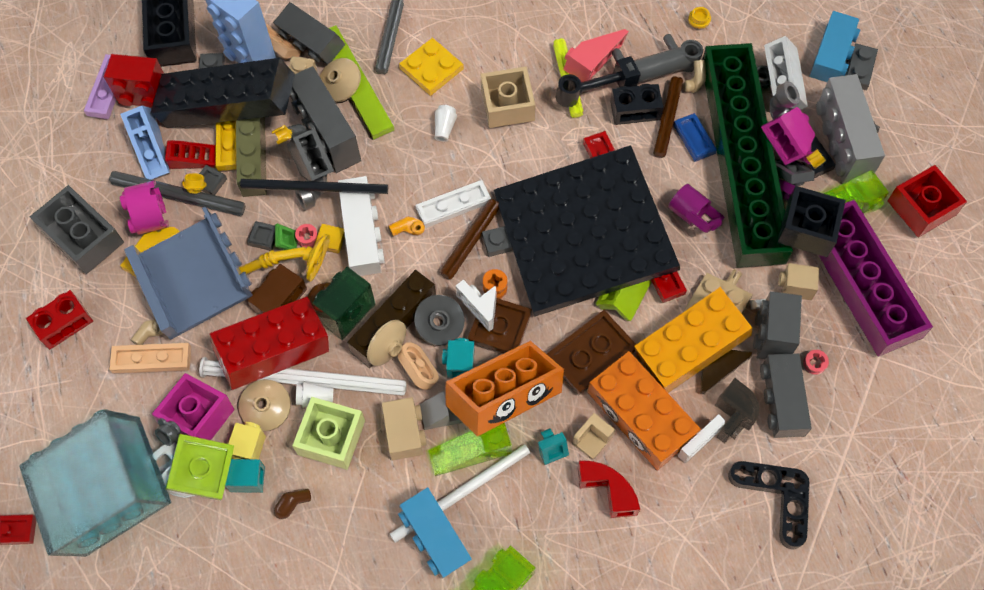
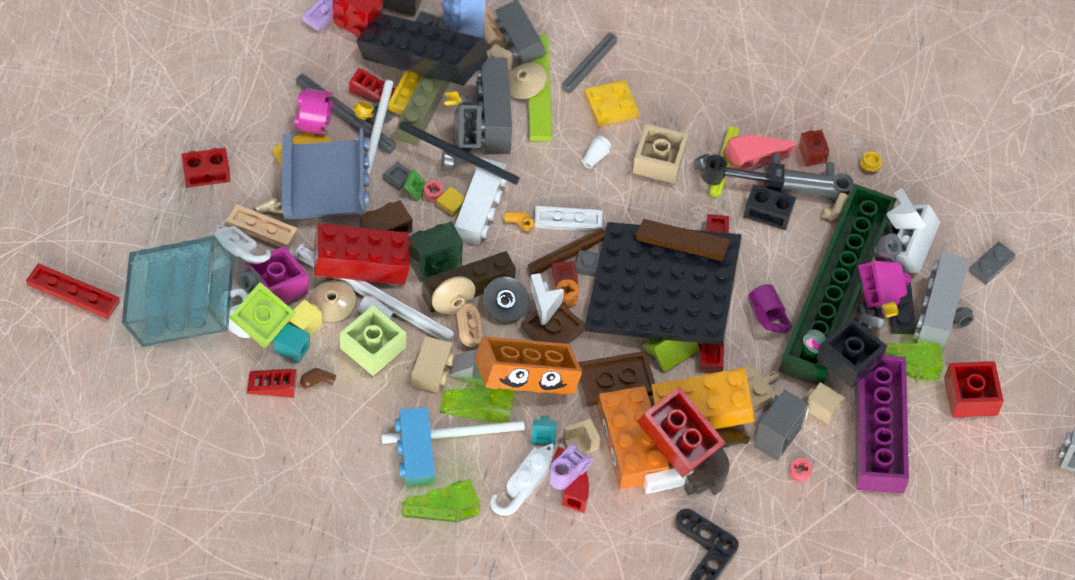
camera: 20 degrees right, 10 degrees down
(77, 229) = (252, 105): dark grey brick -> none
(136, 392) = (240, 244): none -> white plate
(146, 141) = (341, 61): light blue slope -> none
(216, 190) = (380, 116): none -> white piece
(258, 536) = (280, 375): none -> red slope
(313, 256) = (430, 206): yellow dish -> none
(458, 357) = (507, 328): teal brick -> none
(480, 263) = (564, 271): none -> clear red plate
(549, 87) = (700, 162): none -> dark grey plate
(561, 510) = (525, 479): none -> white plate
(580, 177) = (683, 239): none -> reddish brown tile
(607, 478) = (572, 464): none -> lavender piece
(642, 27) = (813, 147): none -> clear red brick
(668, 117) = (793, 229): reddish brown axle -> none
(694, 137) = (806, 256): blue tile -> none
(700, 390) = (680, 432): none -> red brick
(767, 225) = (813, 340): none -> sand green tile
(771, 53) = (905, 214): none -> white slope
(785, 396) = (757, 480): dark grey brick -> none
(835, 47) = (977, 234): dark azure brick -> none

